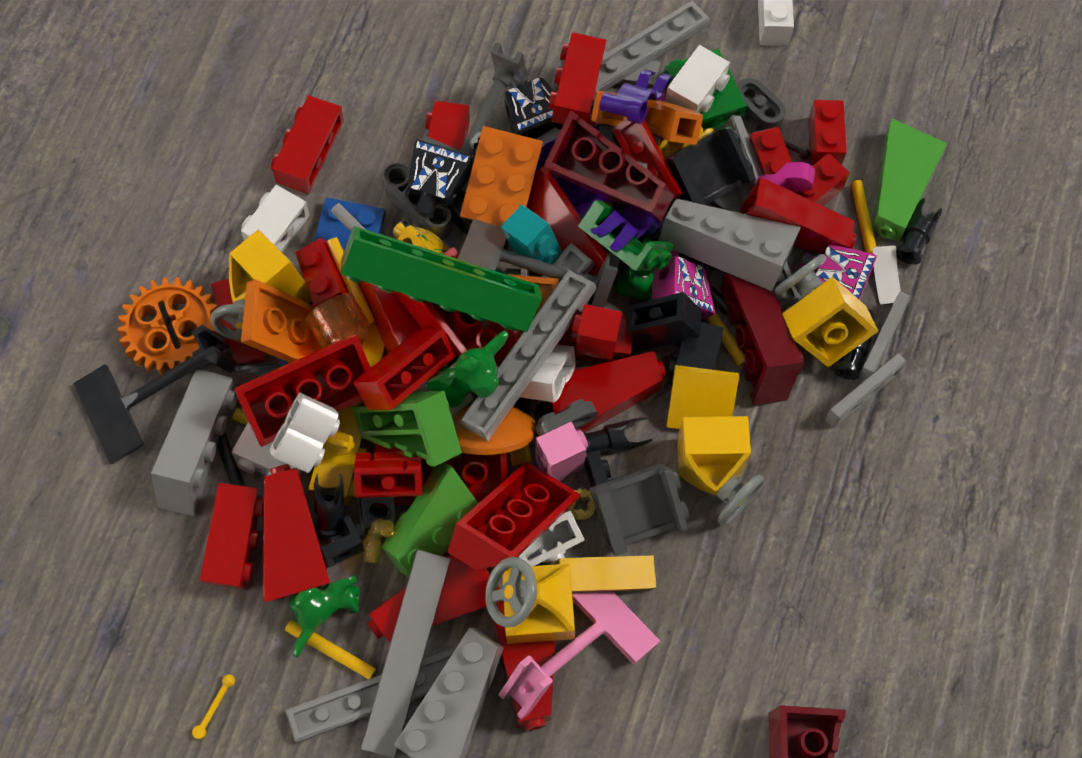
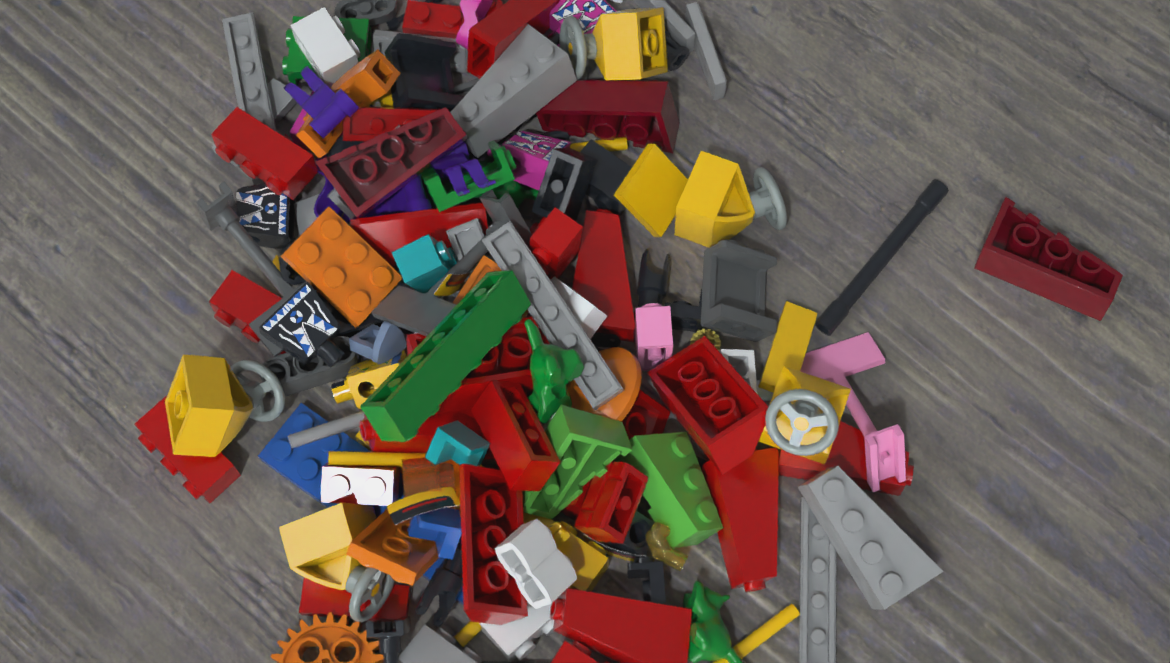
camera: 60 degrees left, 0 degrees up
(277, 217) = (259, 515): white brick -> none
(307, 339) = (439, 526): none -> blue panel
(314, 321) = (422, 503): none -> sticker
(329, 507) = (611, 576): black piece -> none
(342, 141) = (214, 401): none -> yellow piece
(381, 328) = (457, 443): none -> teal panel
(405, 653) = (795, 563): light grey tile -> none
(450, 234) = (378, 342): none -> sand blue tile
(517, 263) = (451, 284): none -> sticker
(577, 412) = (626, 329): dark grey plate -> none
(809, 643) = (839, 308): none -> black piece

